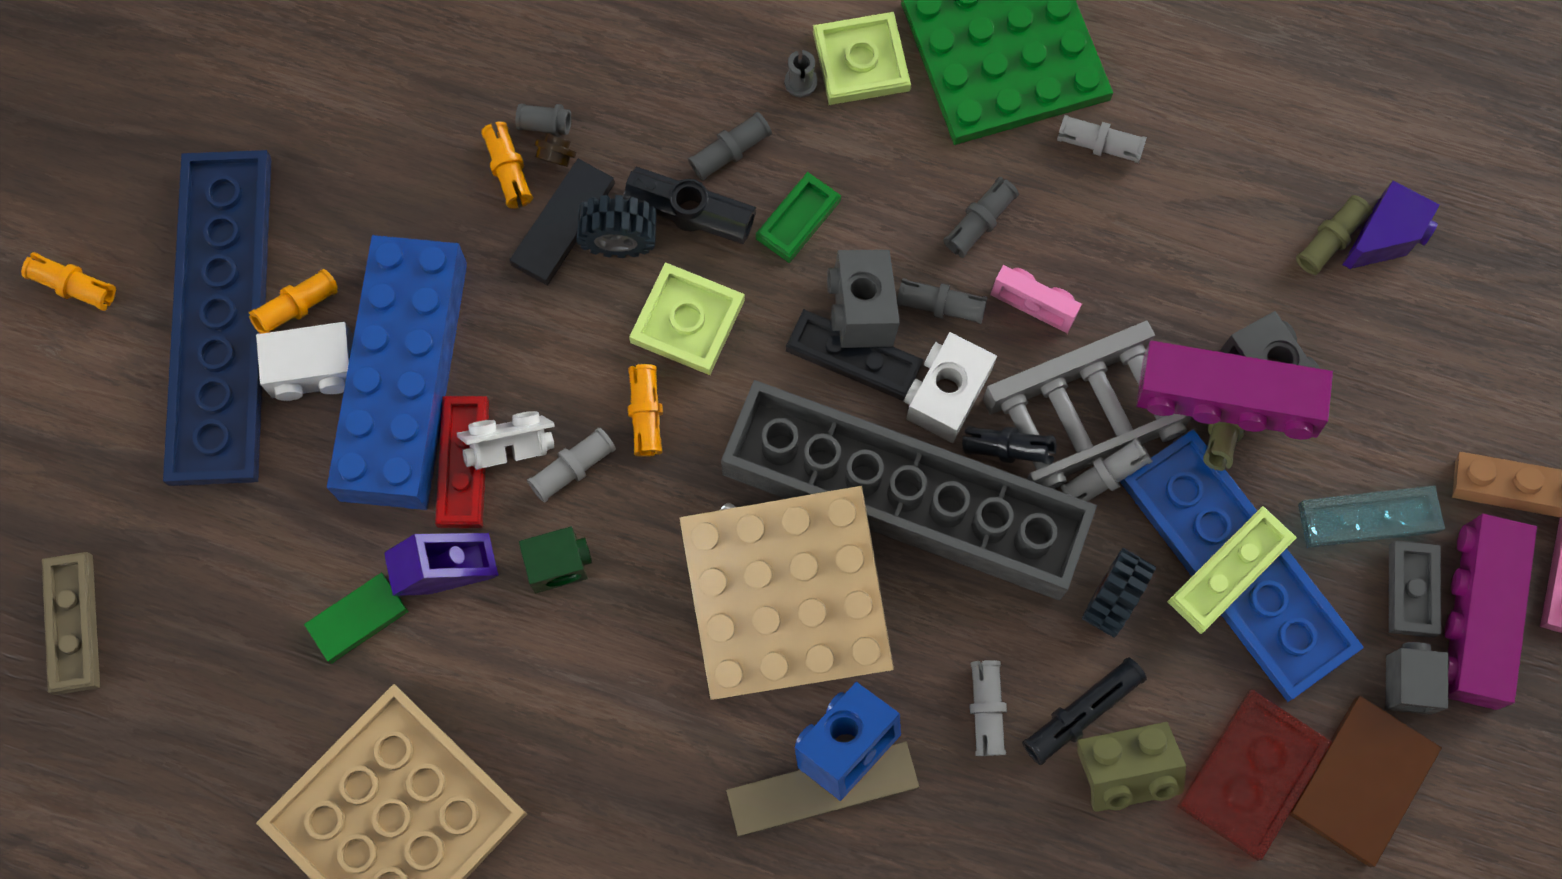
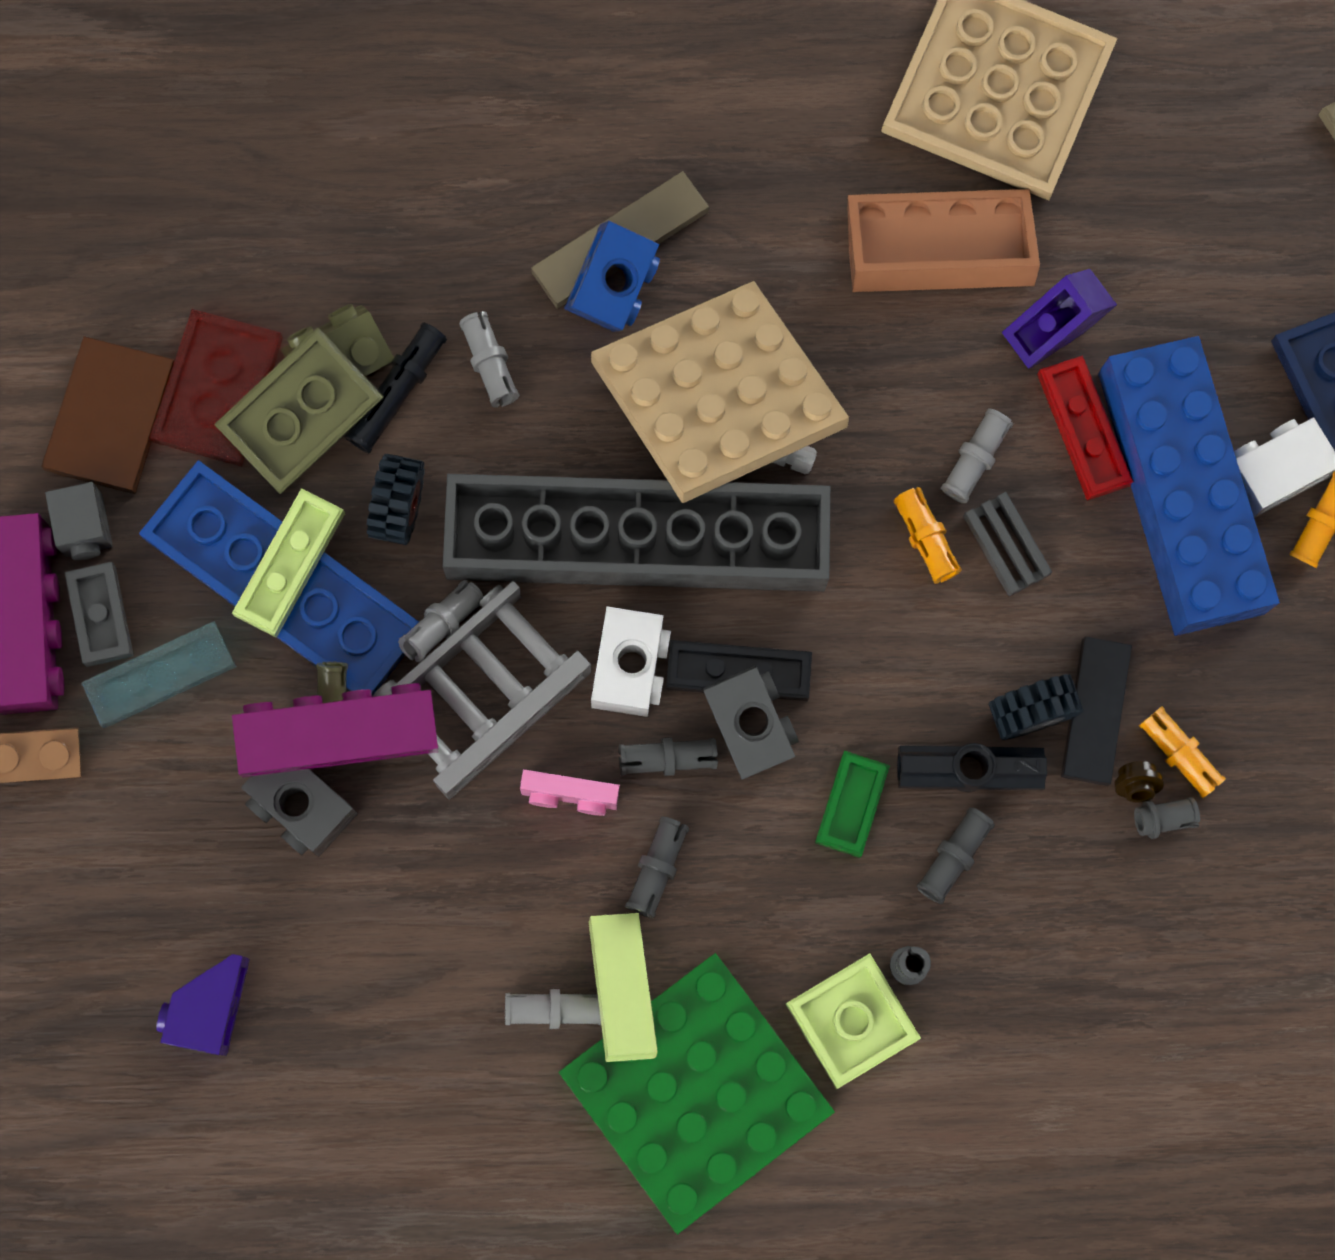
camera: 155 degrees right, 5 degrees up
(355, 618) = (1118, 244): green tile -> none
(489, 440) = (1068, 442): white hinge -> none
(515, 681) = (942, 240): none -> nougat slope
(555, 559) = (953, 356): dark green brick -> none
(572, 348) = (1022, 534): none -> dark grey tile
(687, 318) = (924, 645): yellowish green plate -> none
(1009, 445) = (548, 616): black pin -> none
(1043, 130) = (622, 987): none -> yellowish green tile
(1185, 710) = (299, 410): none -> olive tile
(1334, 234) = (267, 981): olive pin -> none

